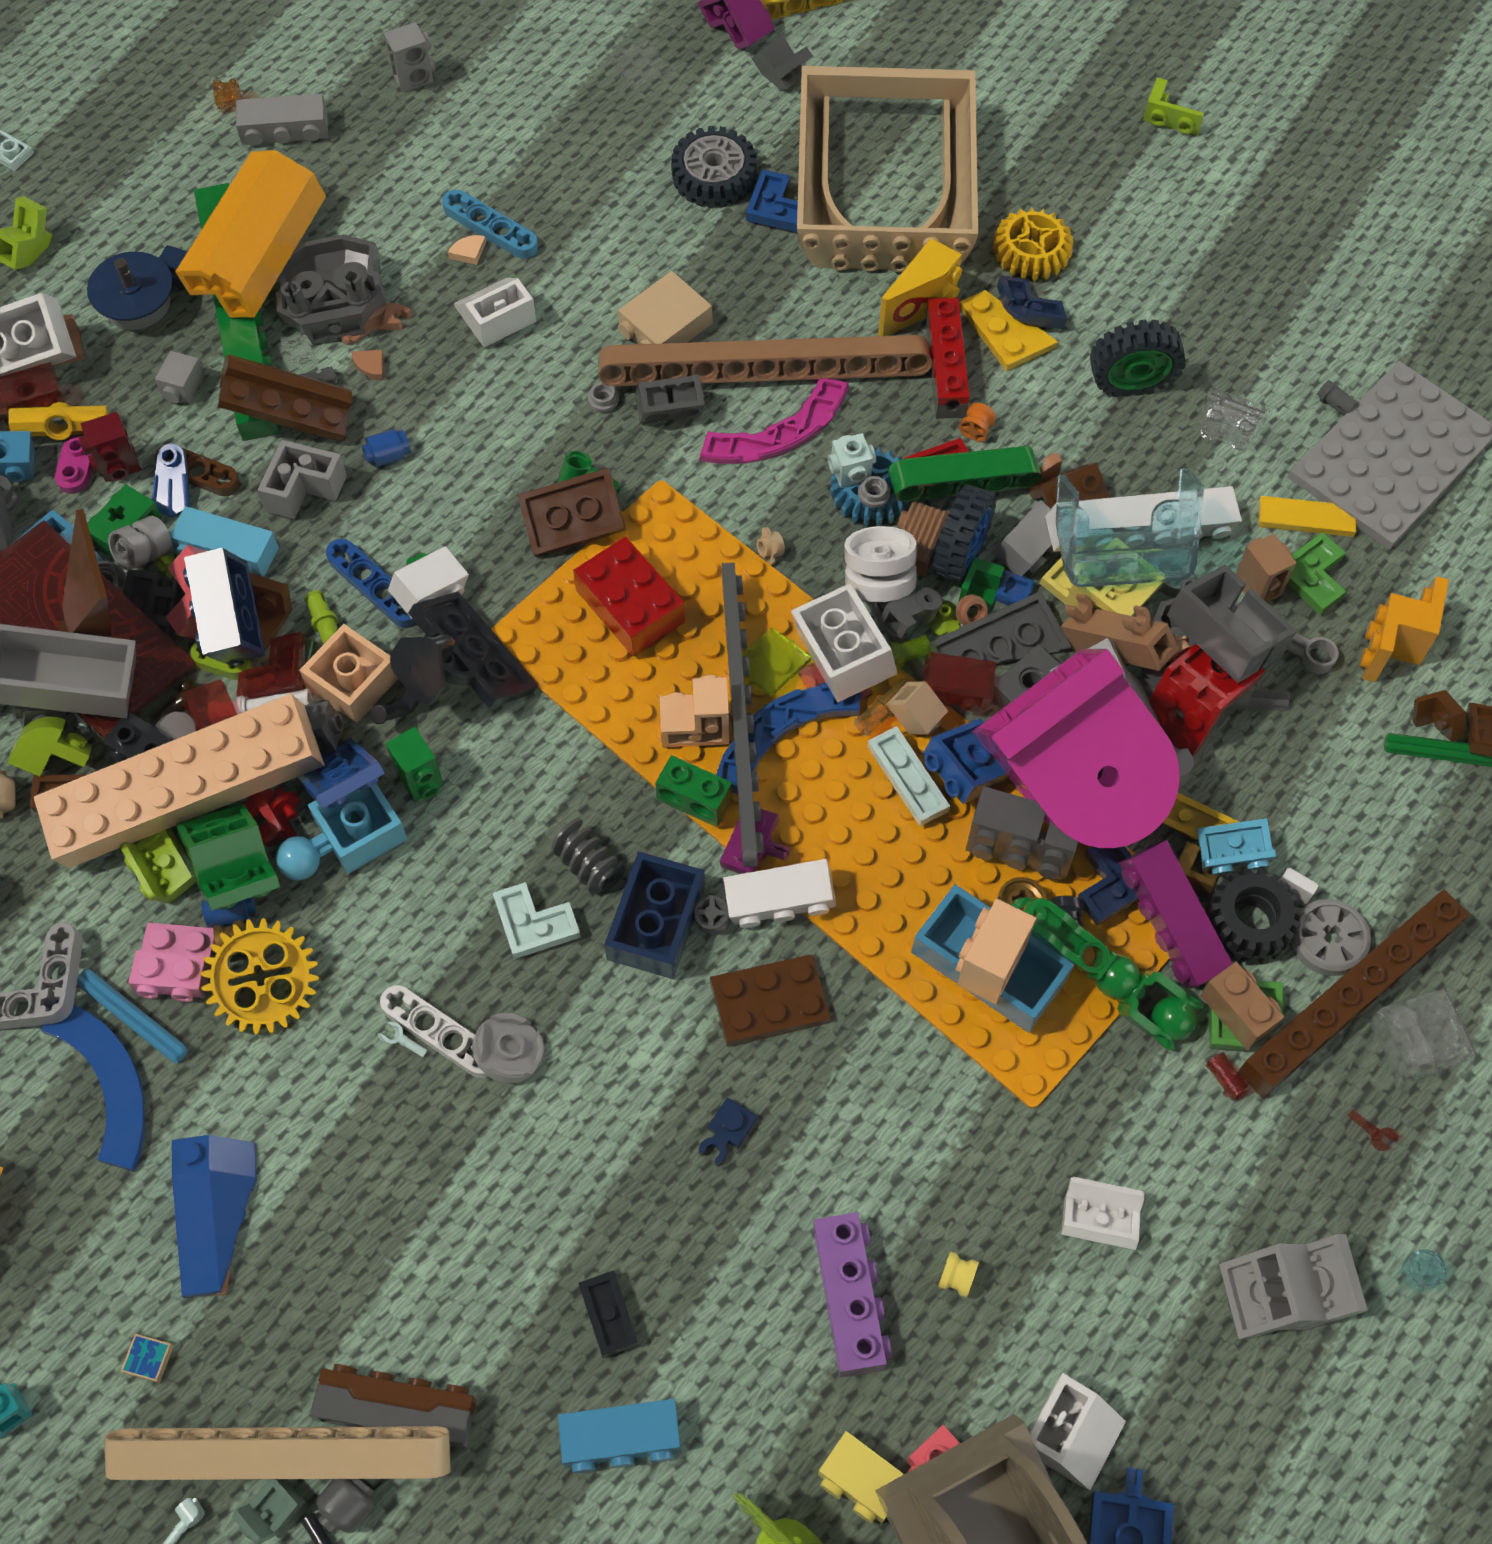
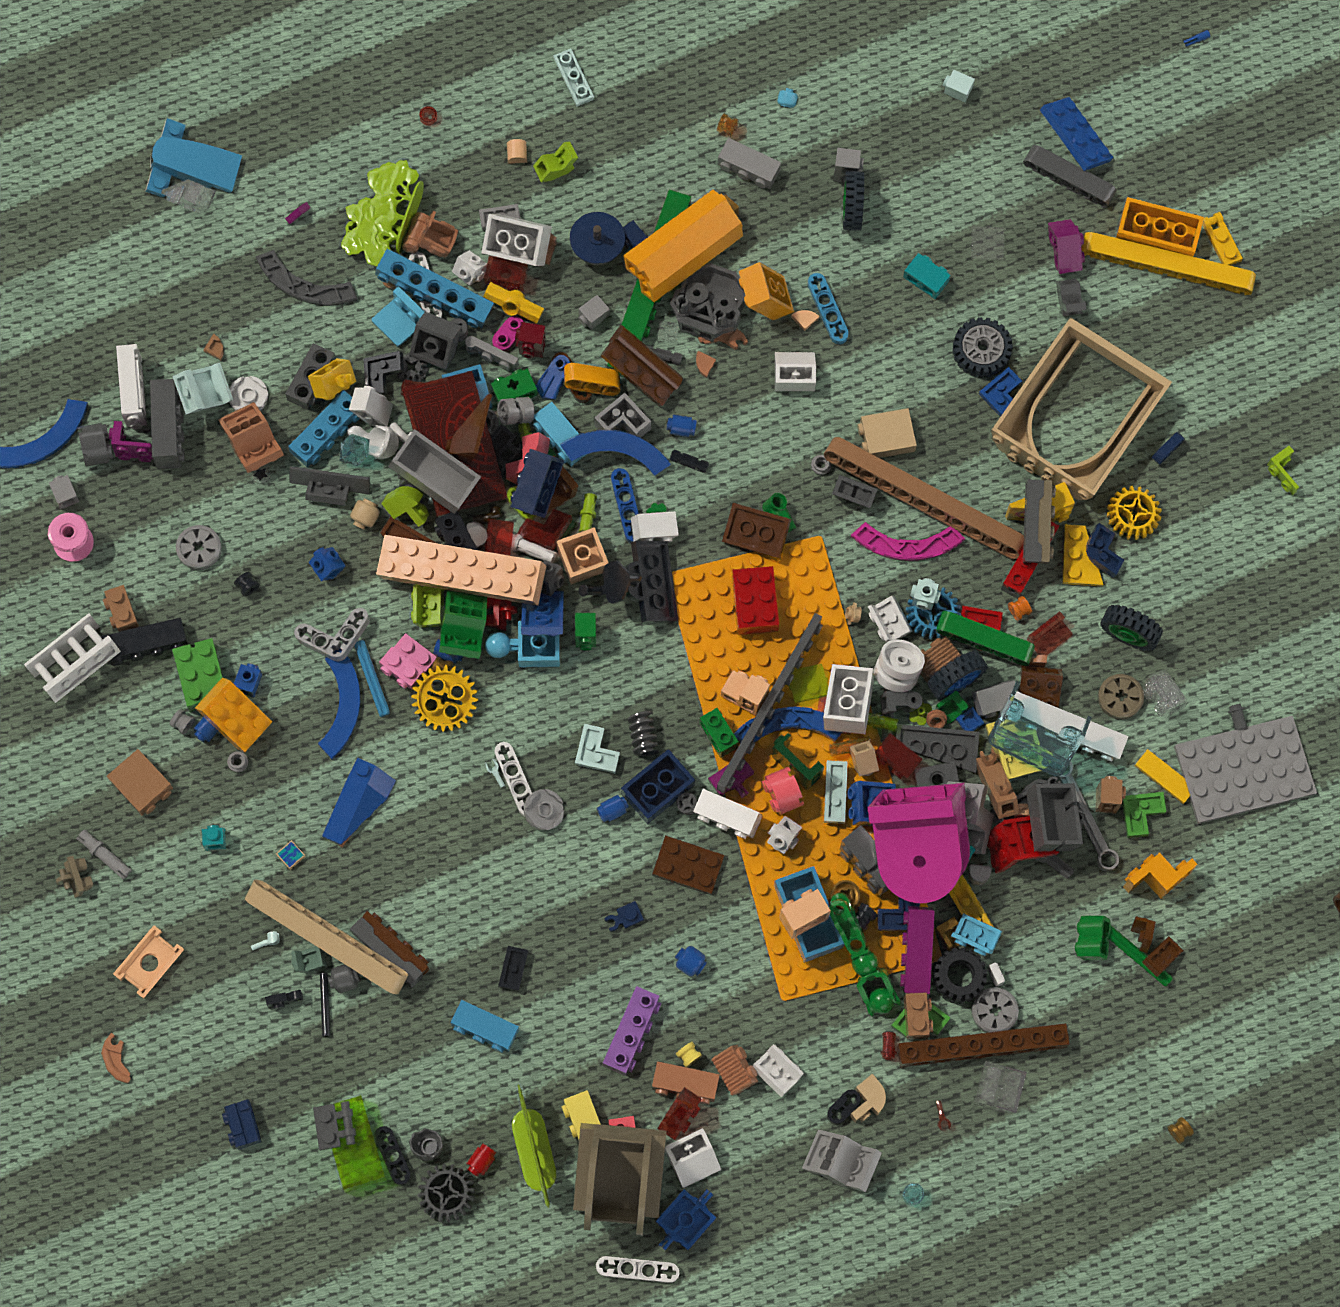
camera: 30 degrees right, 10 degrees up
(63, 496) = (489, 353): none -> light grey plate
(225, 452) = (592, 379): none -> light orange beam
(285, 35) = (787, 98): none -> medium azure piece
(311, 503) = (619, 442): none -> blue tile
(395, 230) = (765, 291): none -> light orange brick
(424, 484) = (689, 461): none -> black axle
(443, 83) = (853, 201): none -> black wheel
(590, 127) = (927, 275): none -> teal brick
(609, 986) = (612, 808): none -> blue brick
(823, 524) = (889, 619): none -> white bracket
(827, 768) = (804, 775): none -> dark green panel
(838, 812) = (783, 791): none -> coral brick
(867, 1133) = (690, 961): none -> blue head
(877, 485) = (926, 614): light grey plate -> none
(880, 872) = (784, 835): none -> white brick
(934, 294) = (1038, 521): none -> piece
(982, 1321) = (674, 1078): none -> nougat brick
(1011, 1373) = (679, 1114): none -> clear red brick
(1018, 157) = (1168, 448): none -> dark blue beam
(1039, 430) = (1050, 635): none -> clear red panel
(1042, 1252) = (735, 1069): none -> nougat brick
(1180, 439) = (1112, 705): none -> dark tan wheel
(1222, 1205) = (840, 1103): none -> black beam
(1265, 1163) = (874, 1096): none -> tan brick
(1383, 759) = (1093, 937): none -> green brick

